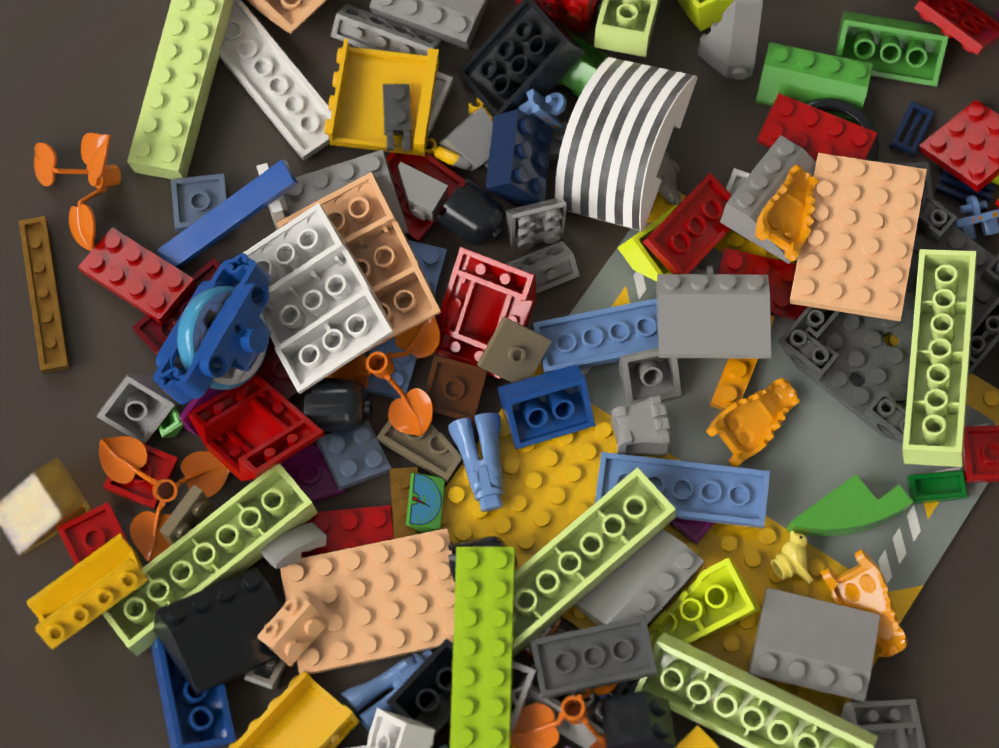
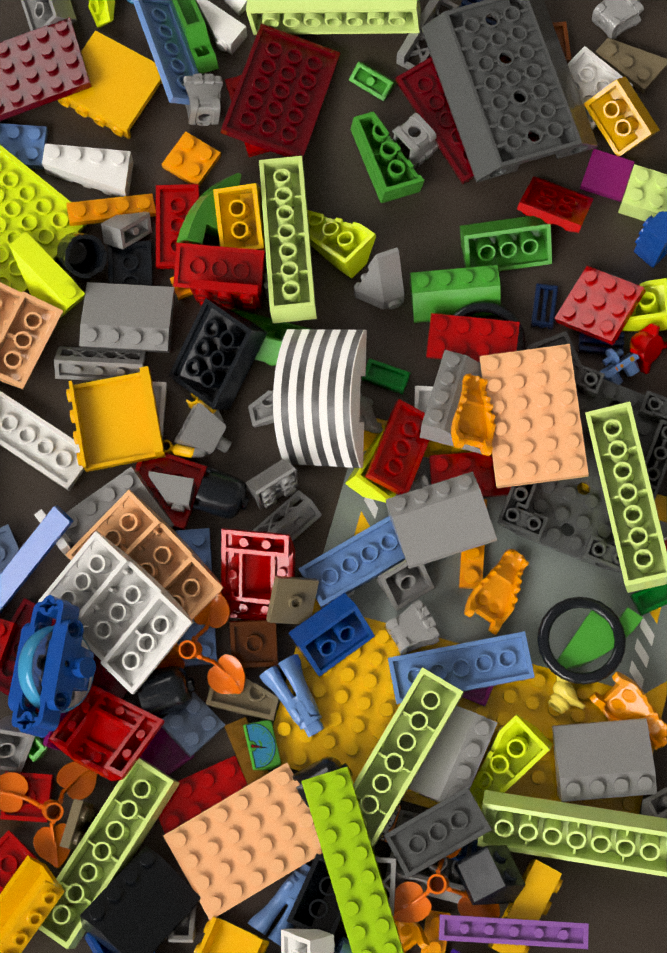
camera: 15 degrees left, 5 degrees up
(288, 547) = (167, 820): light grey slope -> none
(293, 629) = (193, 889): light nougat bracket -> none
(397, 114) = (132, 430): dark grey hinge -> none
(518, 158) = (242, 436): dark blue brick -> none
(545, 109) = (249, 388): medium blue hips -> none
(704, 149) = (386, 376): none -> green tile
(824, 545) = (564, 673): none -> black wedge

